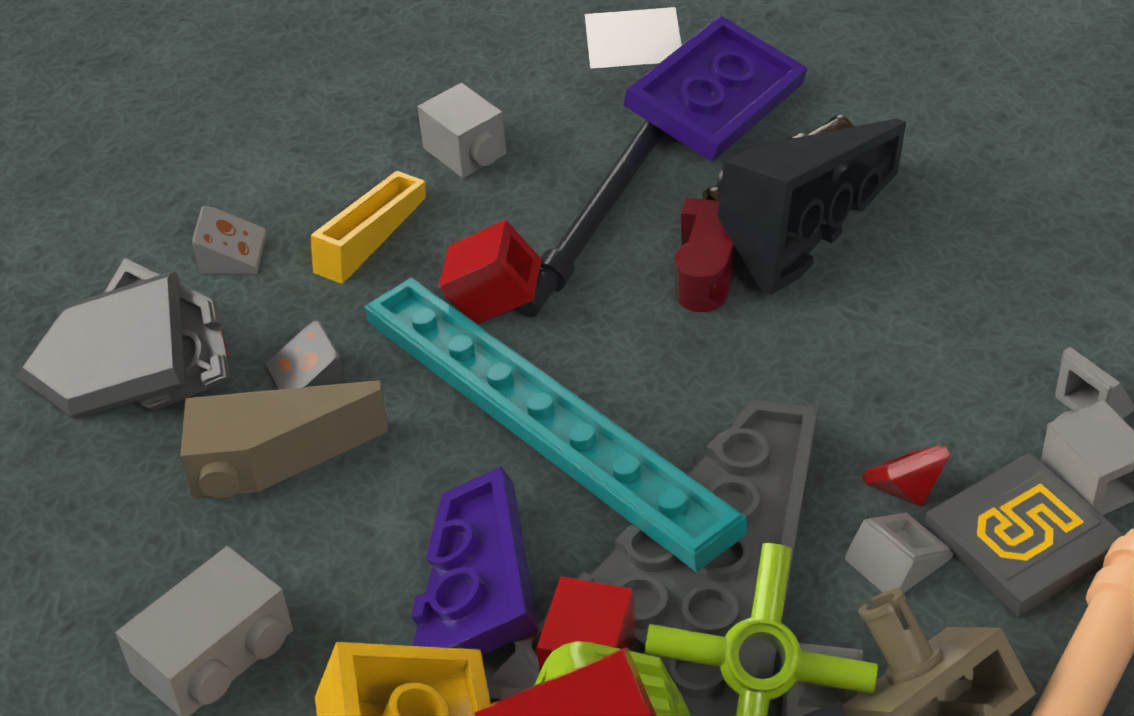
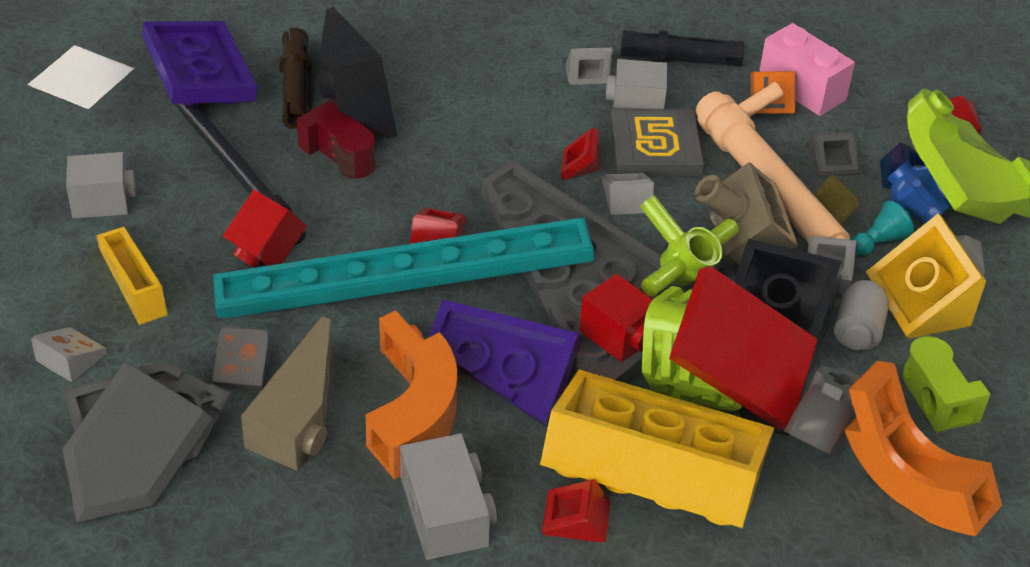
camera: 65 degrees left, 0 degrees up
(348, 543) = (427, 405): none -> orange arch
(653, 409) = (436, 224): none -> red slope

